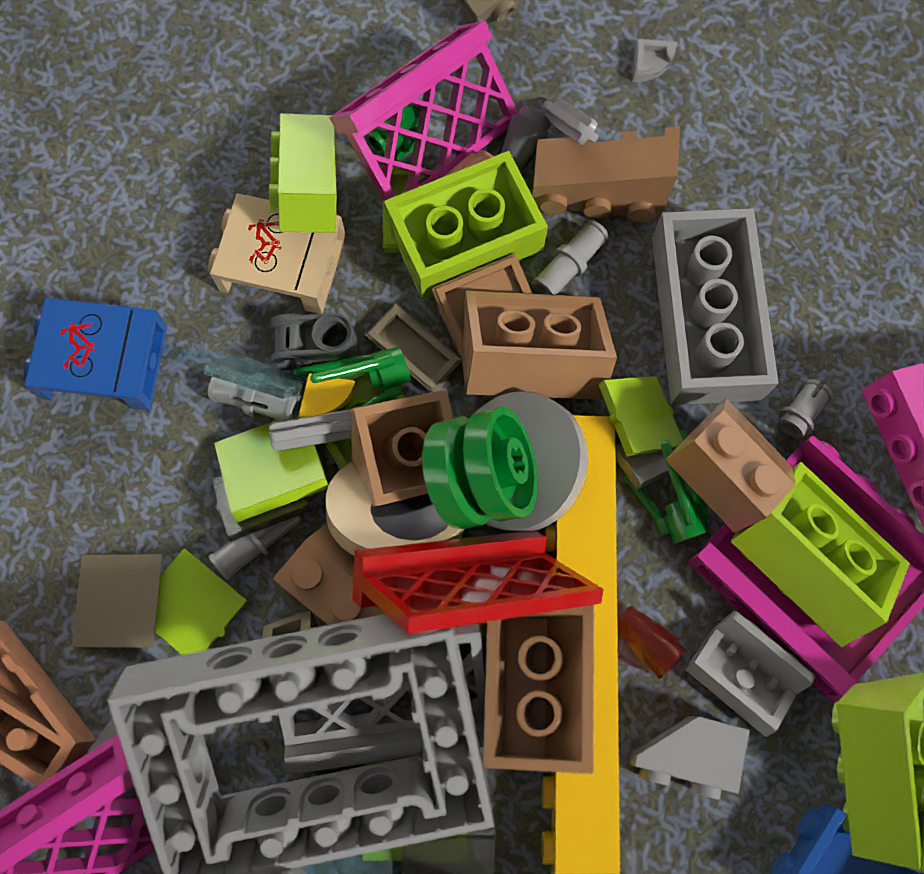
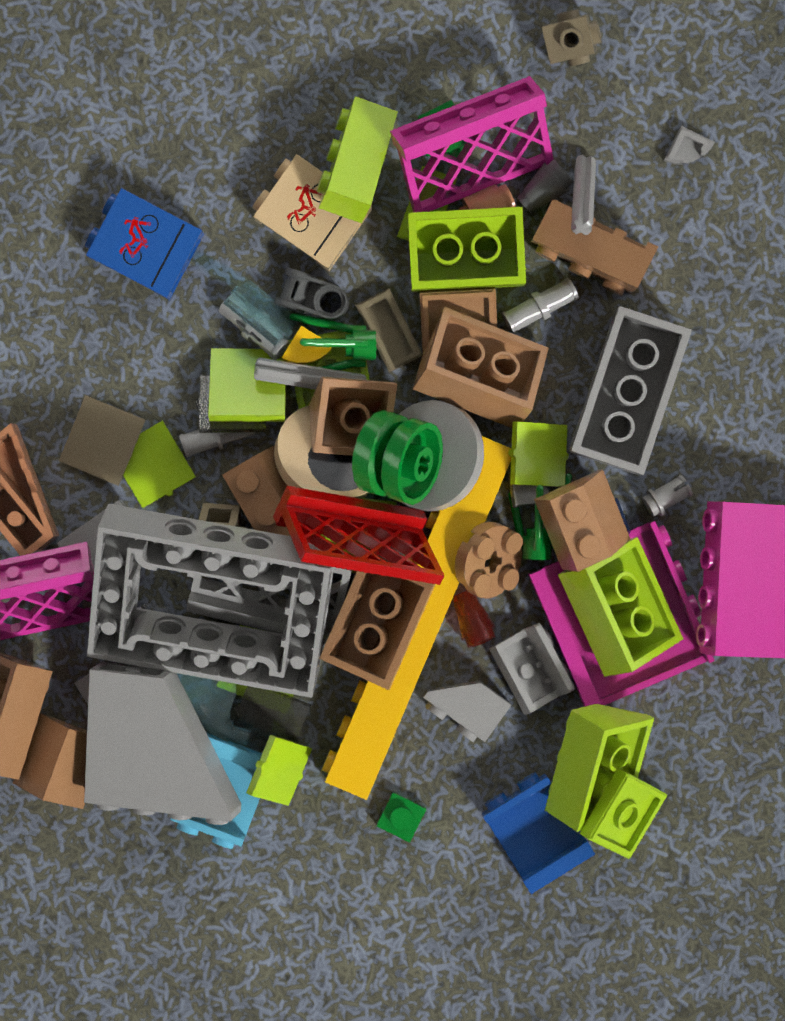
camera: 25 degrees right, 15 degrees up
(644, 536) = (502, 572): none -> medium nougat plate

